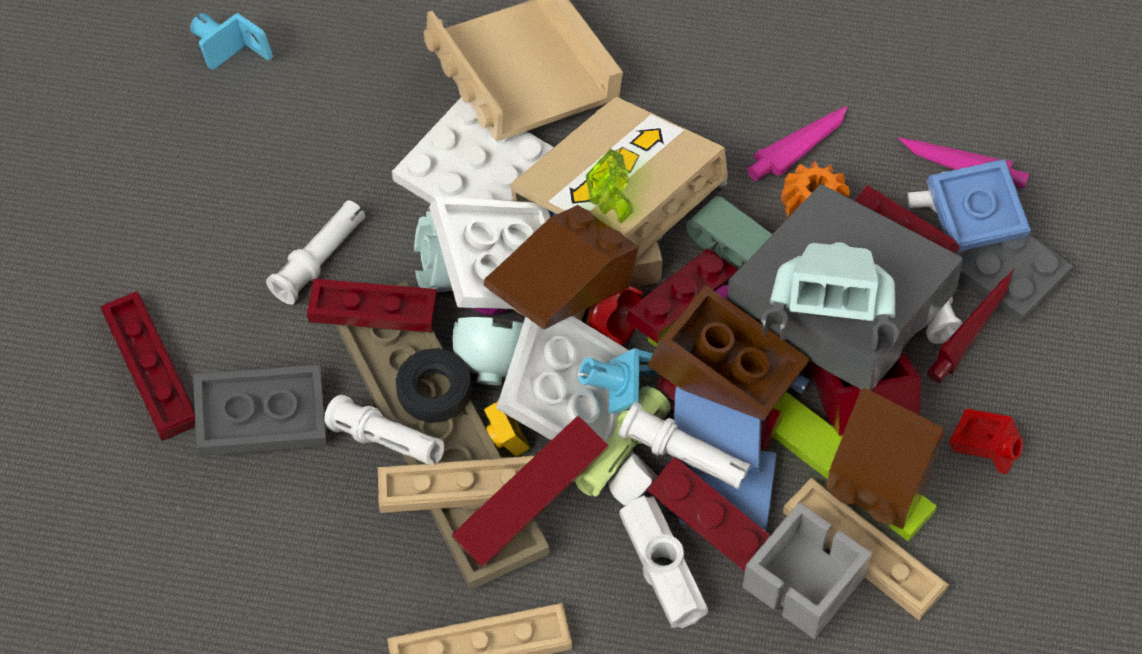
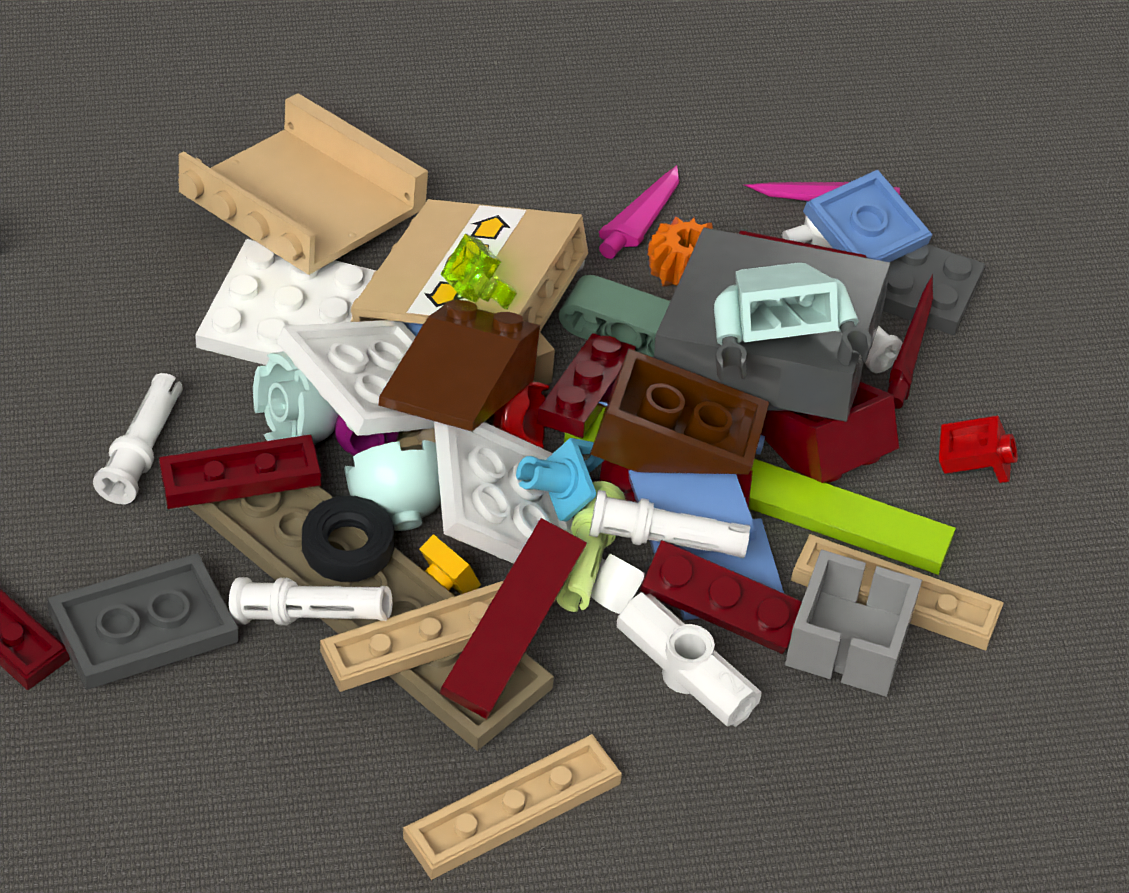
camera: 25 degrees left, 10 degrees down
(884, 459) = (896, 477): reddish brown slope -> none

